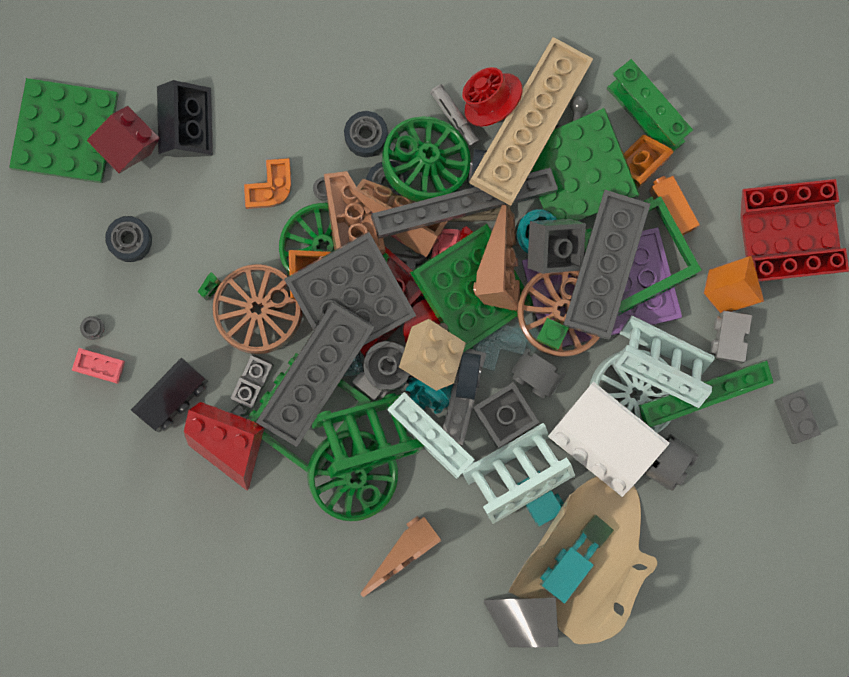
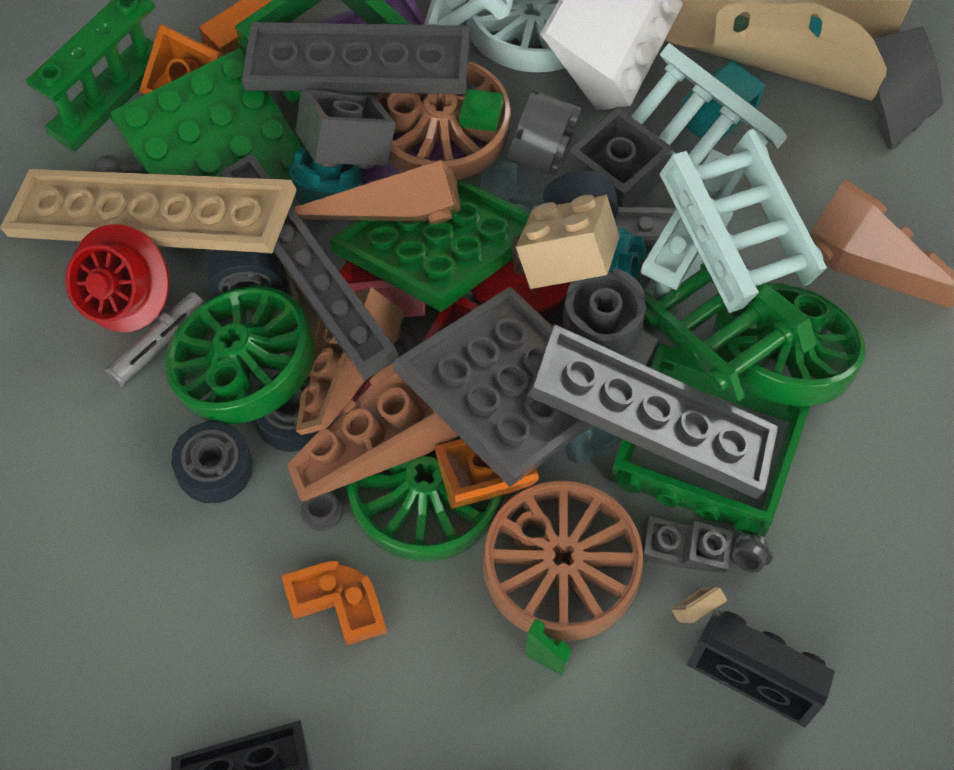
camera: 105 degrees left, 20 degrees down
(214, 375) = (698, 604): none -> tan tile
(224, 440) = (805, 547): red wedge -> none
(422, 434) = (710, 235): none -> light aqua fence

